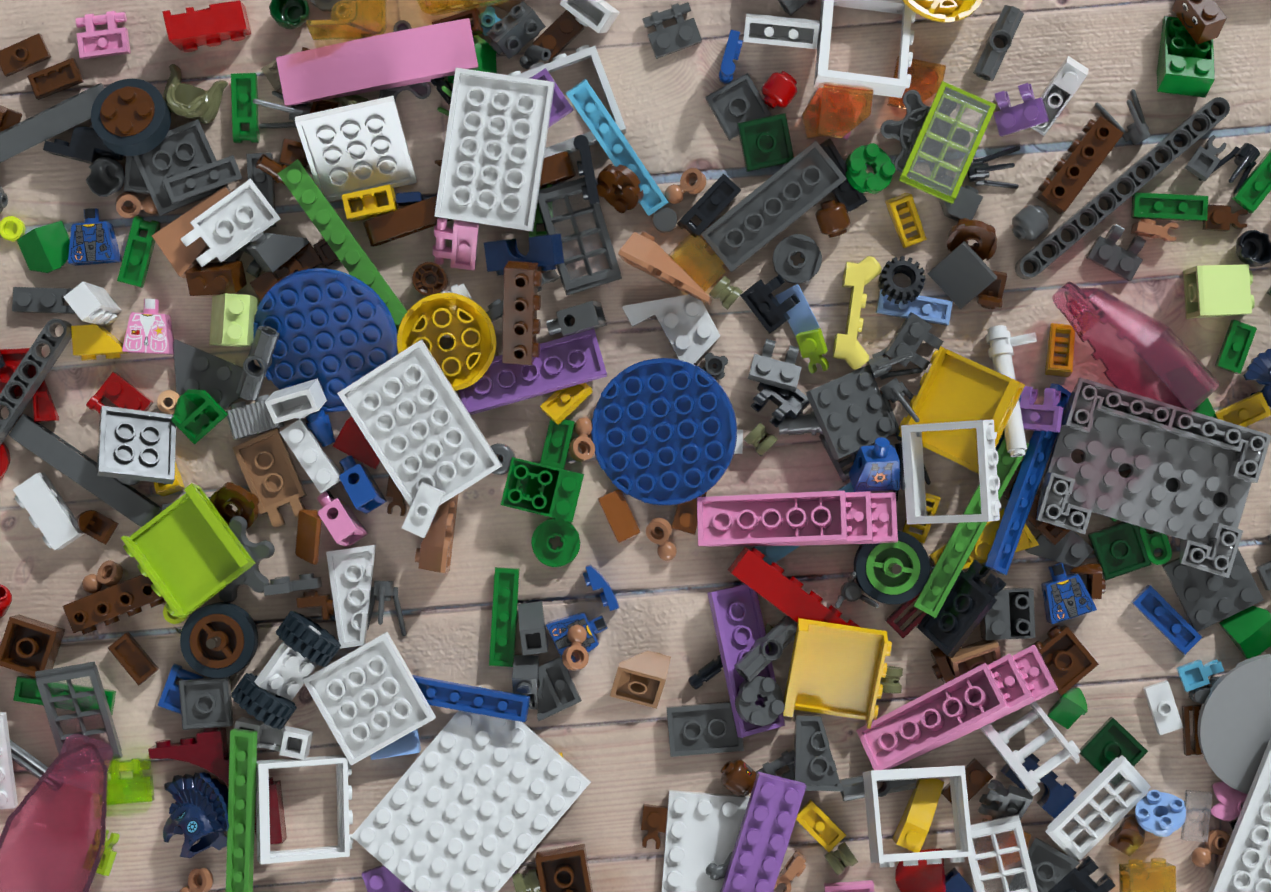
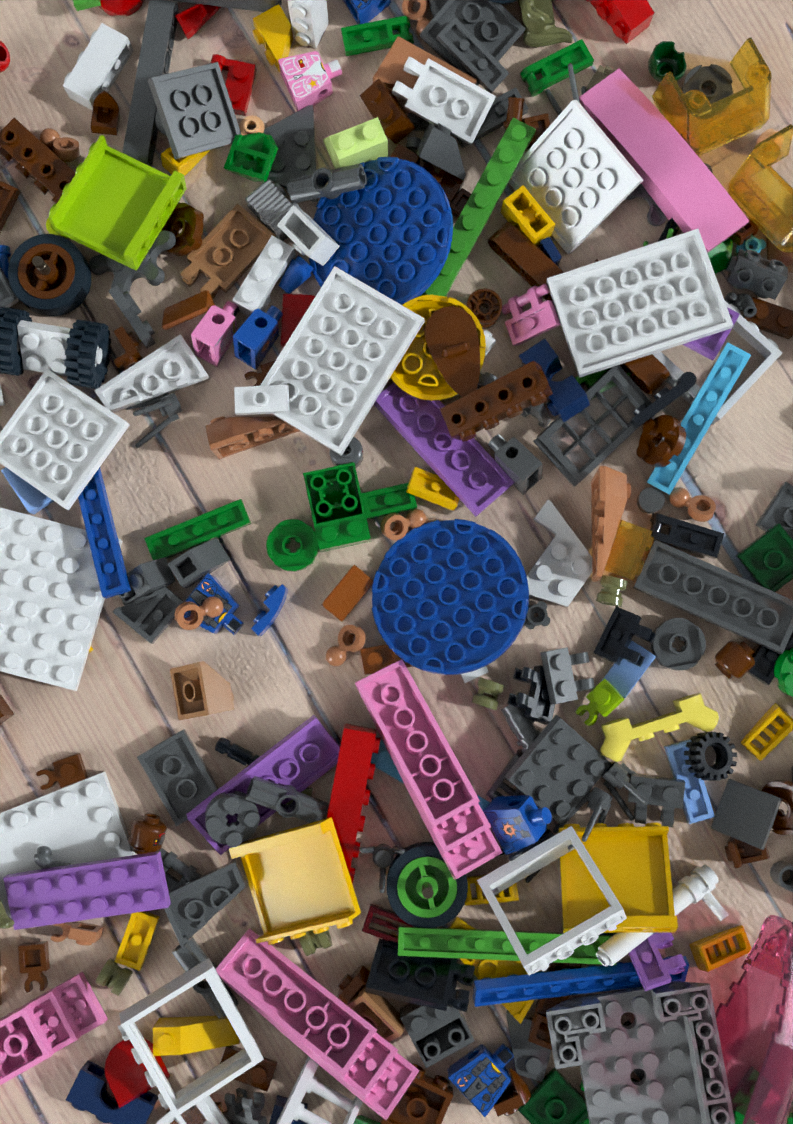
camera: 65 degrees right, 5 degrees down
(456, 324) = (455, 348): none -> reddish brown shield

